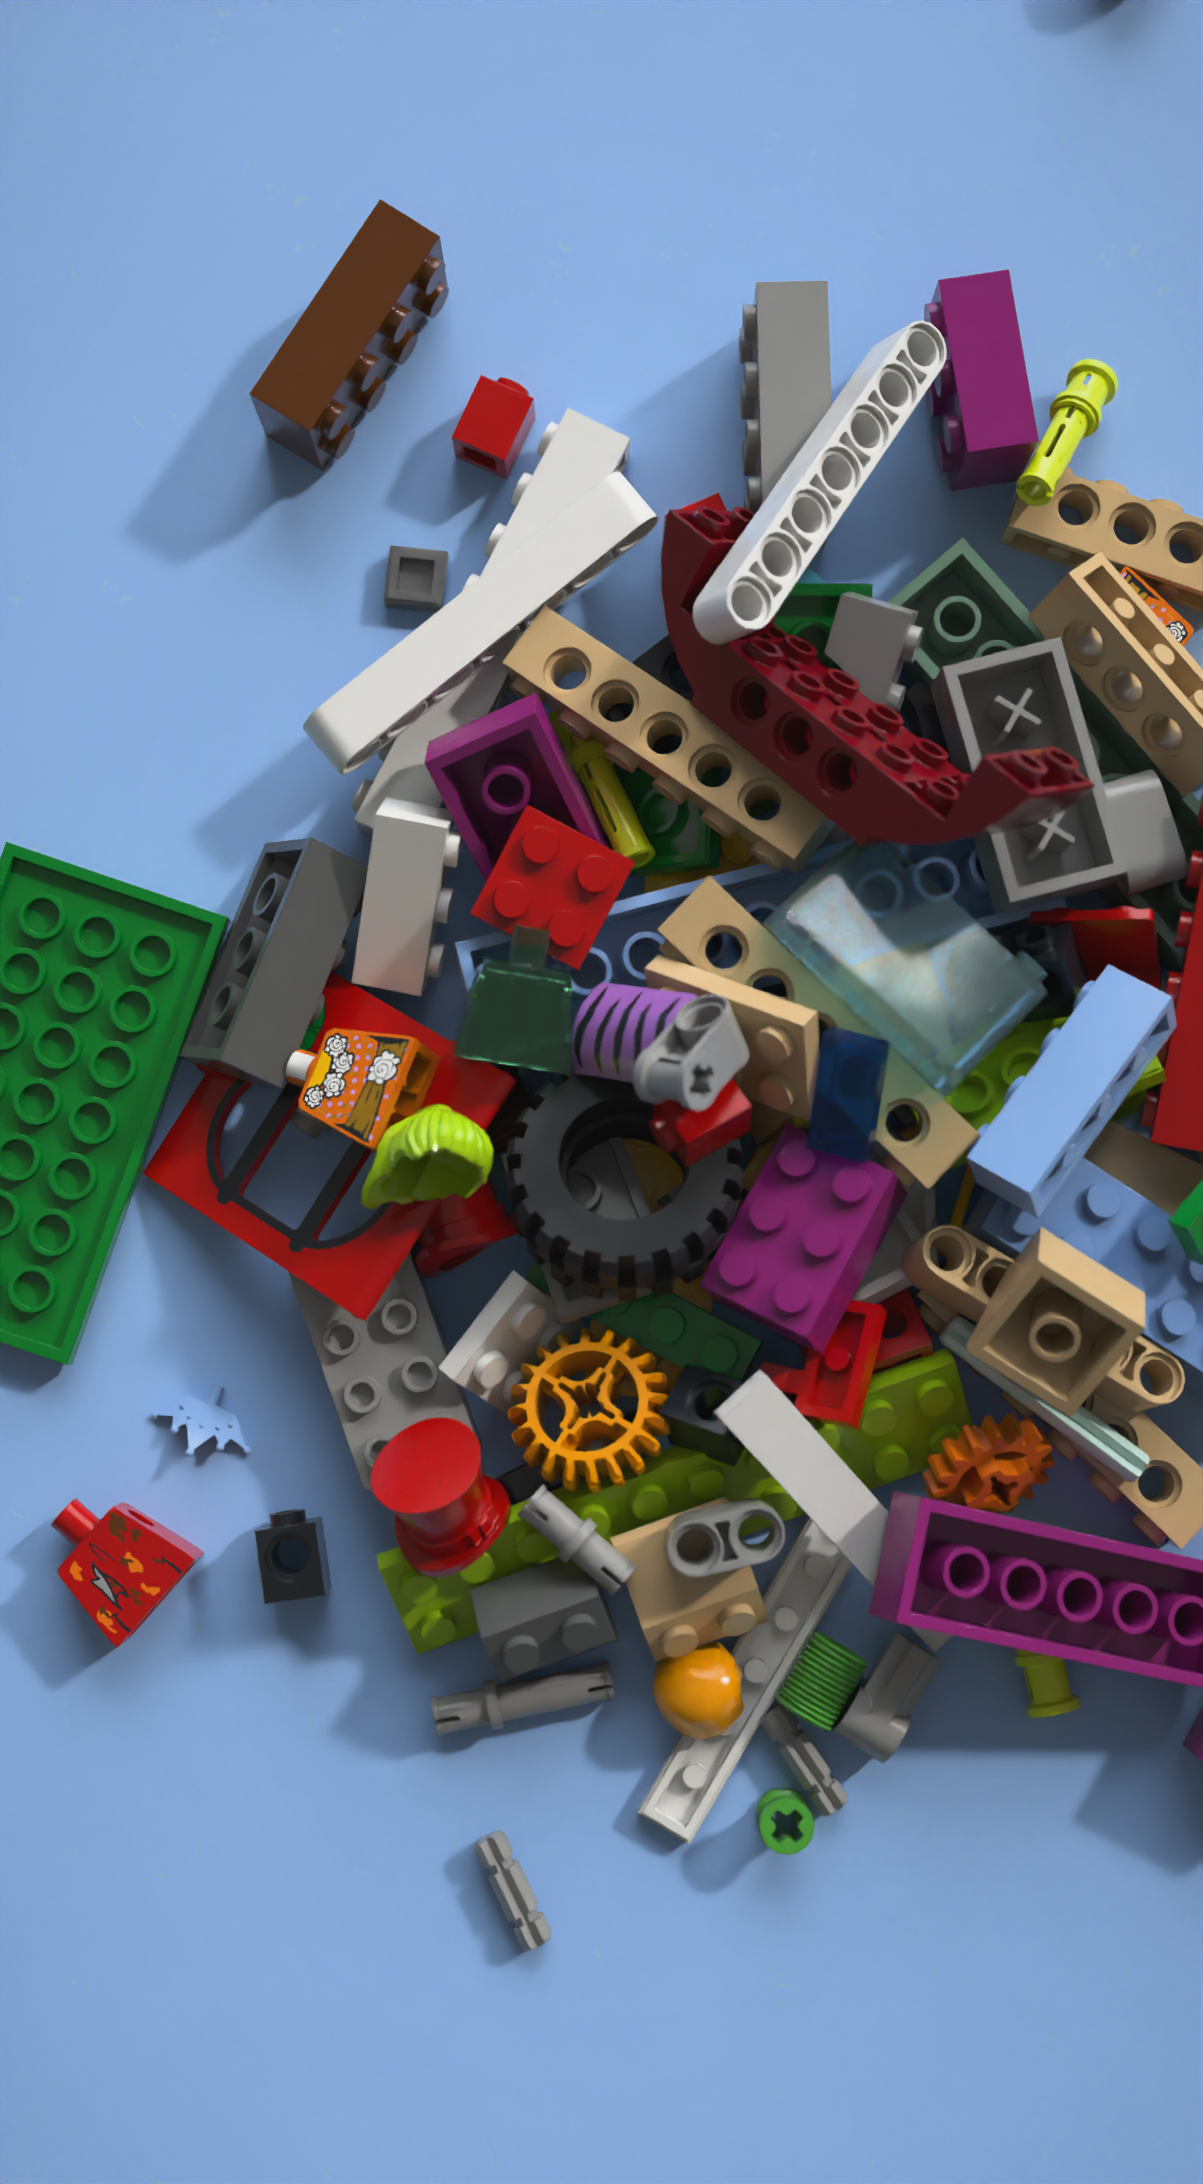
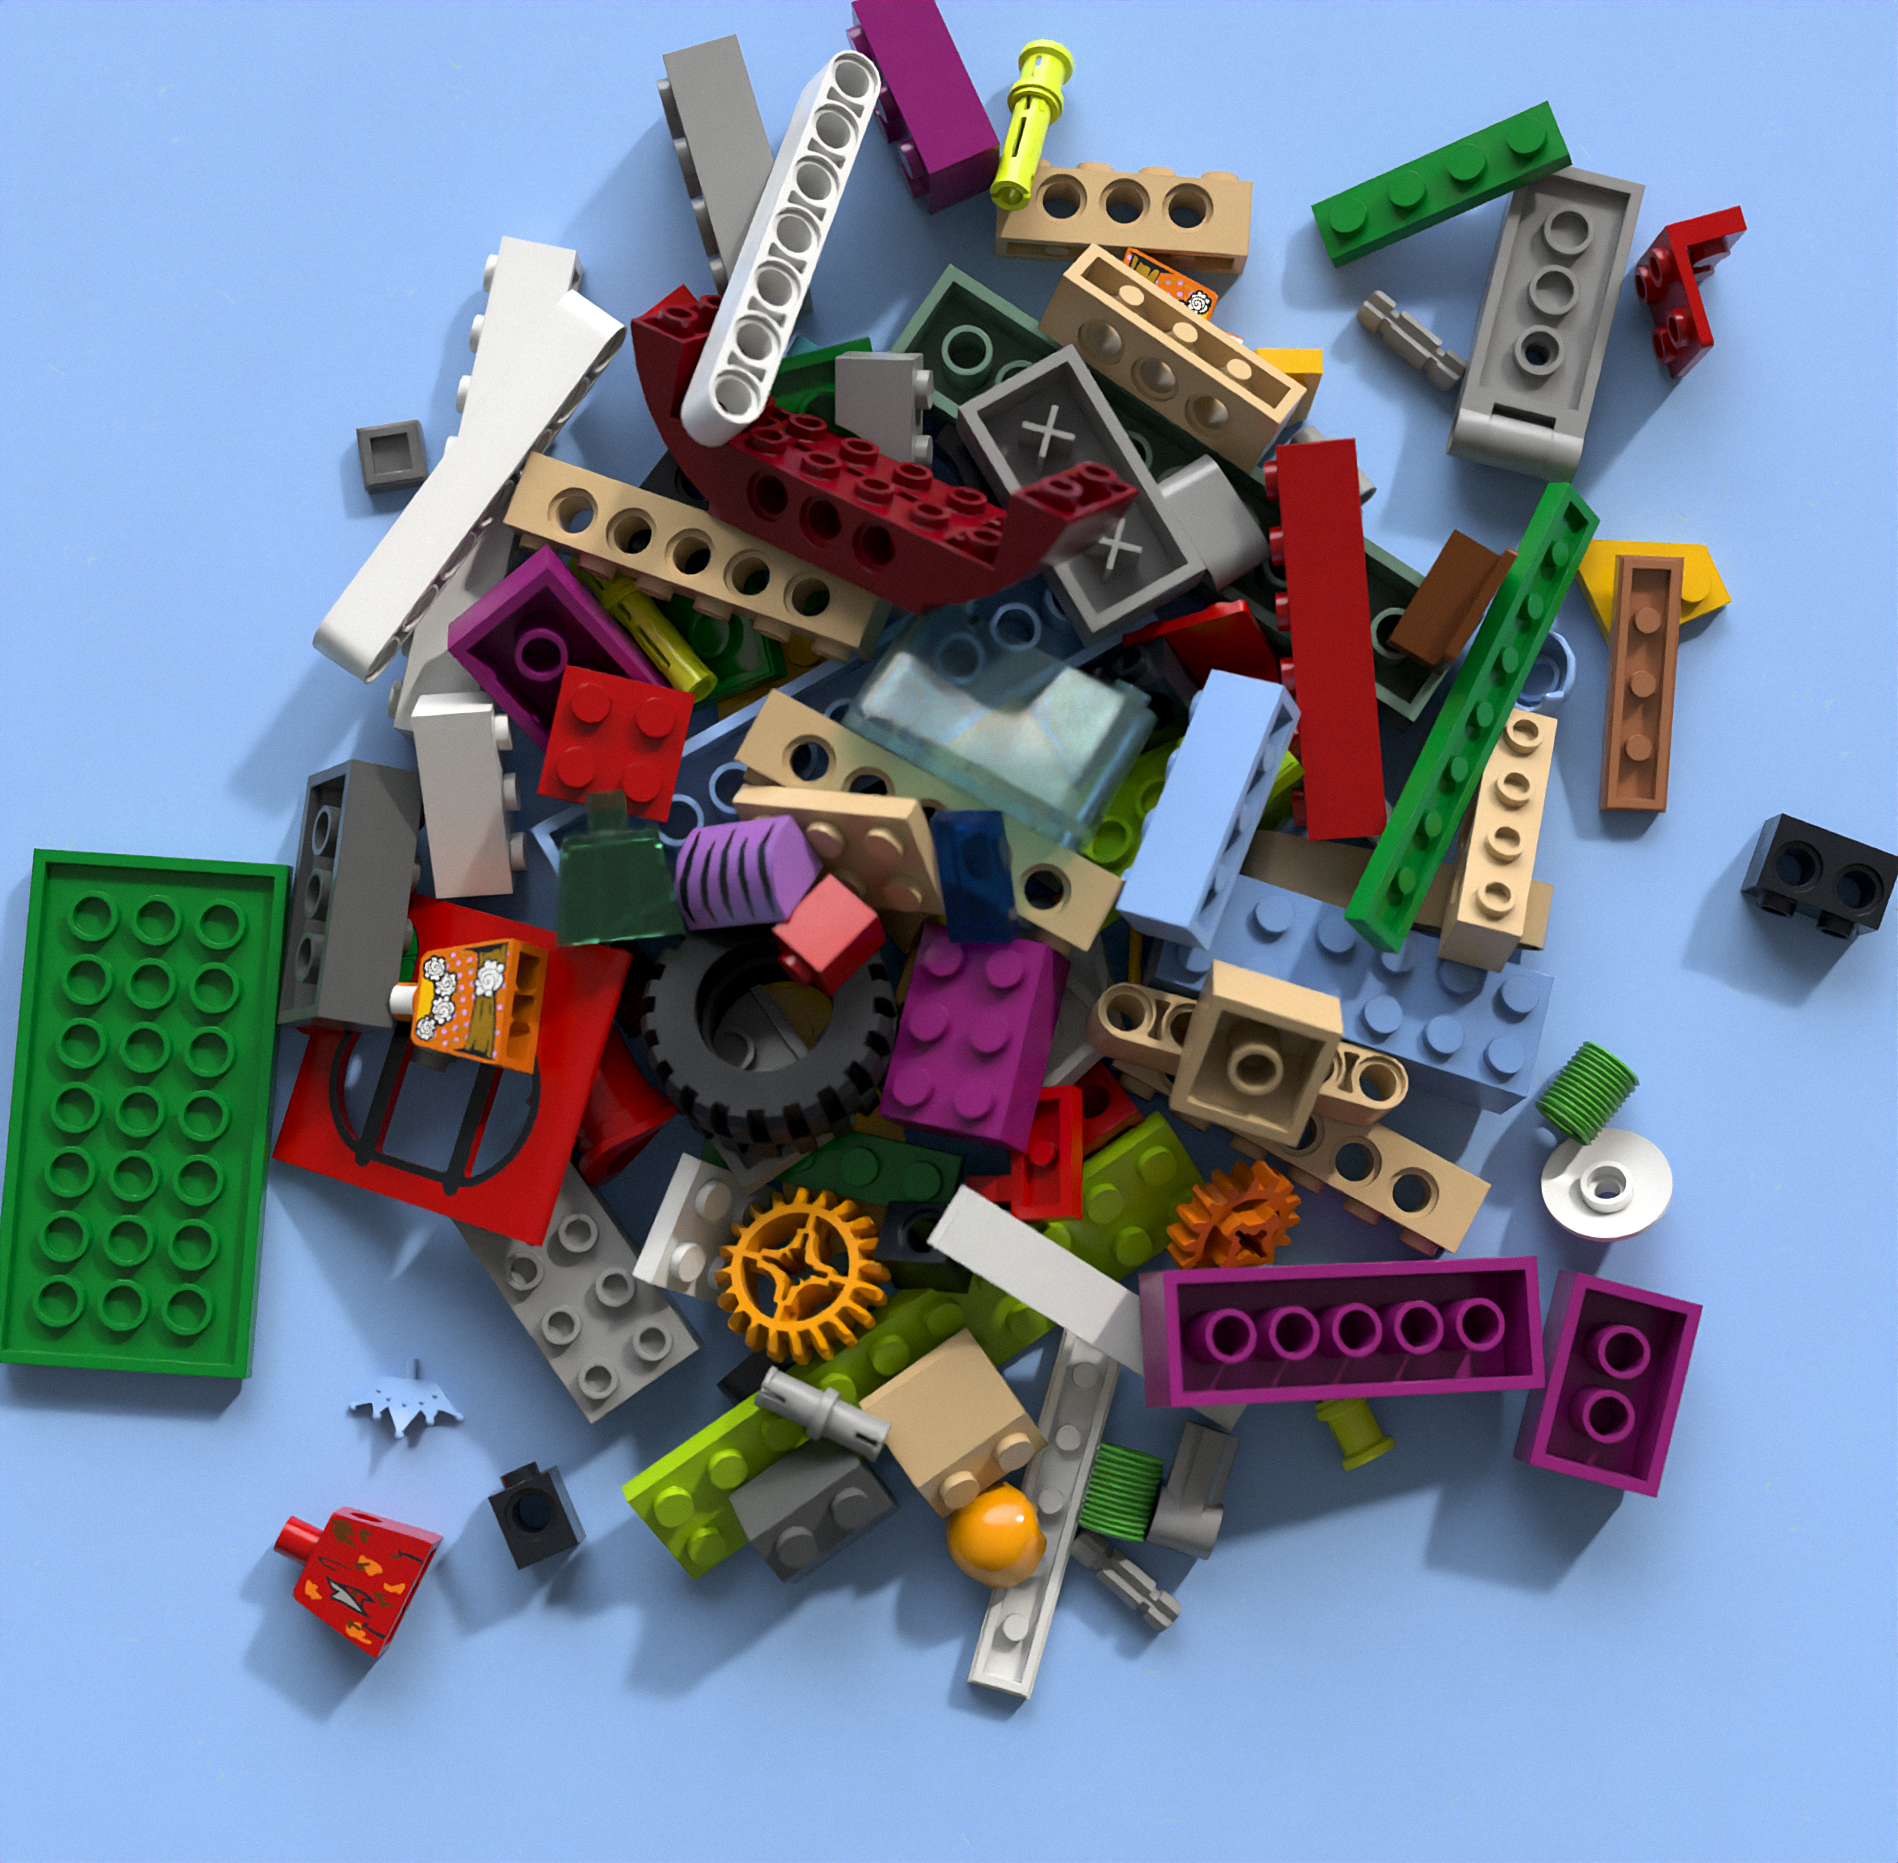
camera: 15 degrees left, 0 degrees up
(352, 336) = (256, 221): reddish brown brick -> none
(428, 1159) = (561, 1060): lime hair -> none
(439, 1496) = (668, 1407): red hat -> none
(494, 425) = (431, 273): red brick -> none
(513, 1890) = (859, 1798): light grey axle -> none
(521, 1698) = (815, 1596): light grey pin -> none
(692, 1055) = (801, 879): light grey piece -> none
(726, 1549) = (979, 1378): light grey beam -> none
(783, 1839) = (1126, 1667): bright green bush -> none
(1082, 1428) = (1311, 1153): light aqua axle -> none

